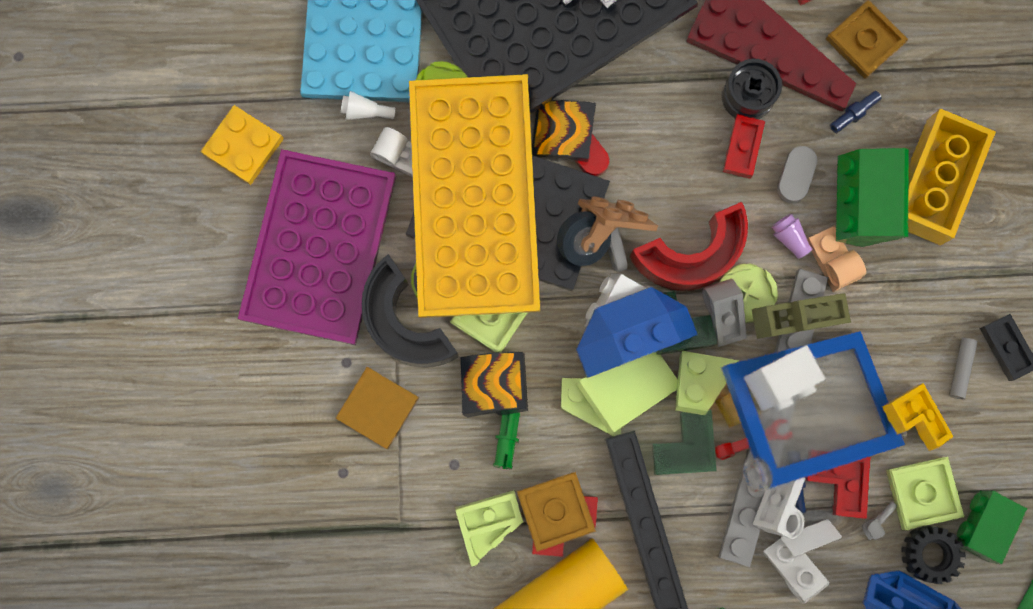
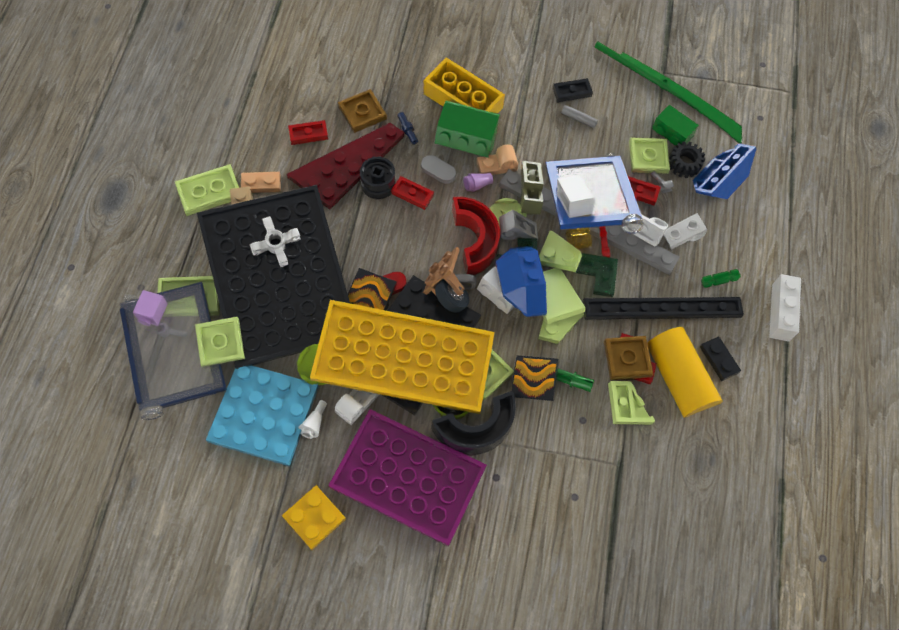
camera: 80 degrees left, 15 degrees down
(377, 408) = (534, 461): pearl gold tile -> none
(812, 538) = (666, 214): white sticker -> none
(918, 410) = (604, 145): yellow plate -> none

